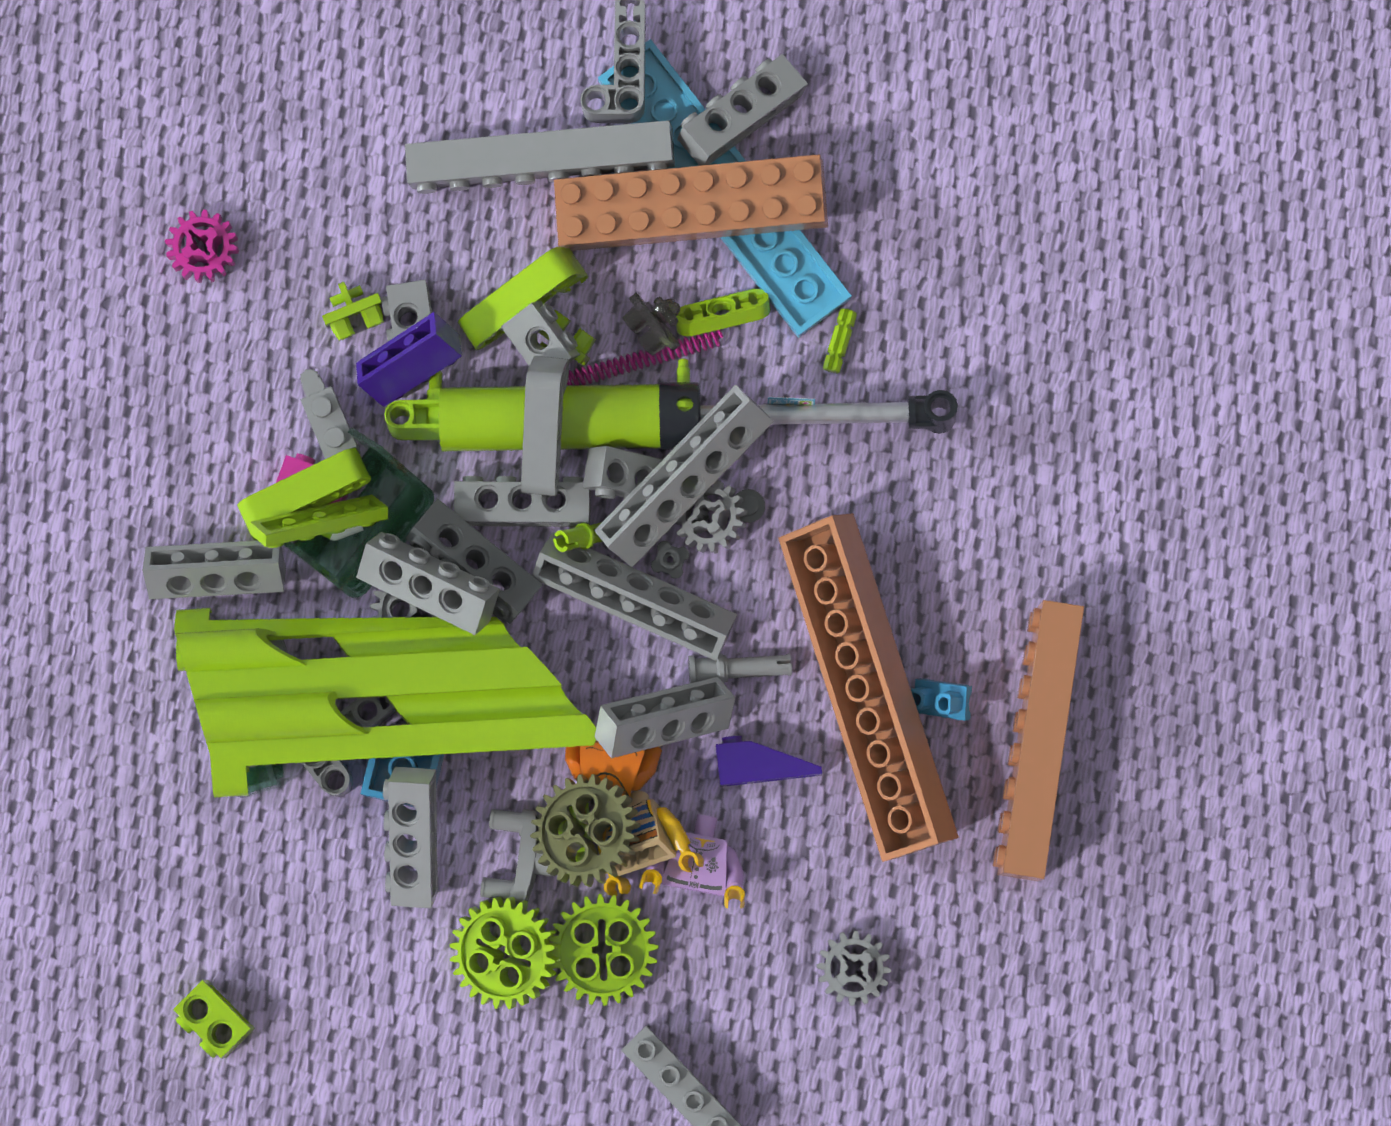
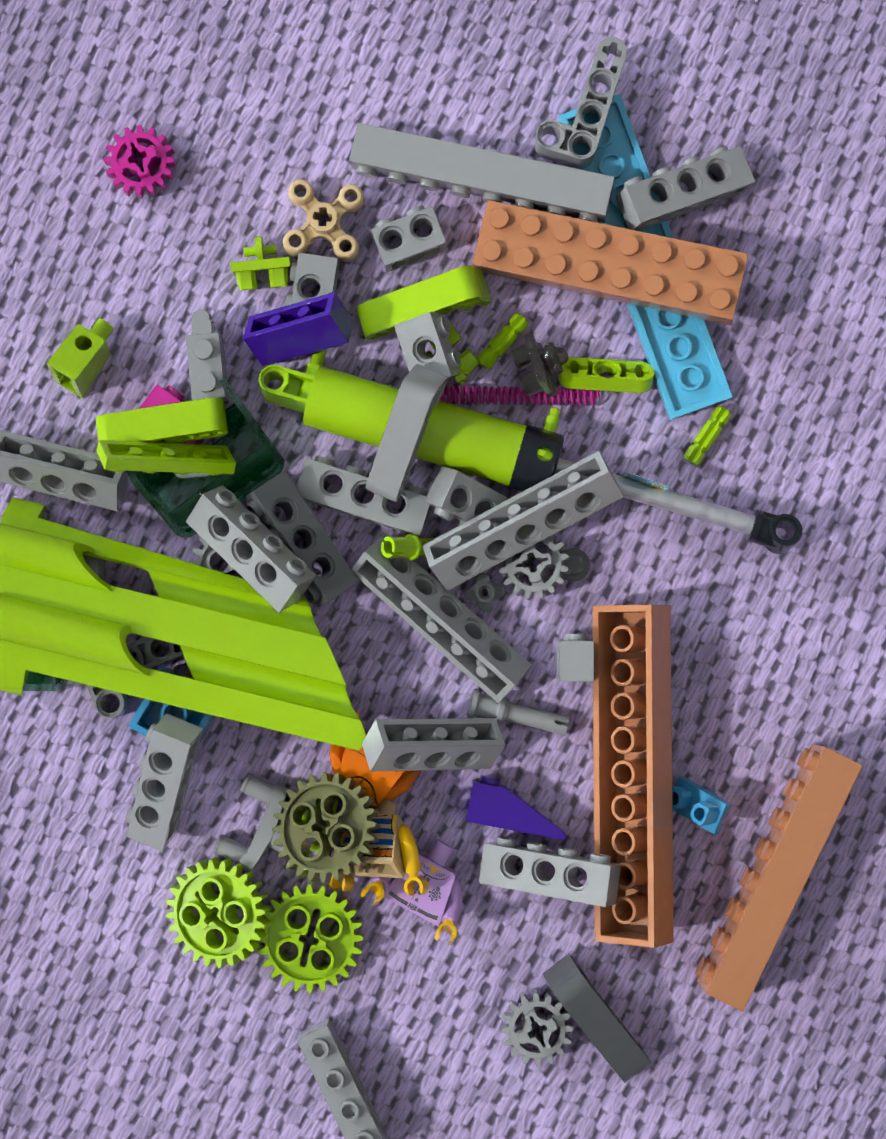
camera: 20 degrees right, 5 degrees up
(203, 453) = (81, 357): none -> lime torso
(412, 255) = (314, 211): none -> tan gear
(494, 246) = (412, 246): none -> light grey brick
(611, 311) = (502, 341): none -> lime axle
(776, 594) = (575, 659): none -> light grey brick
(868, 804) = (499, 871): none -> light grey brick
(910, 939) = (596, 1018): none -> dark grey beam

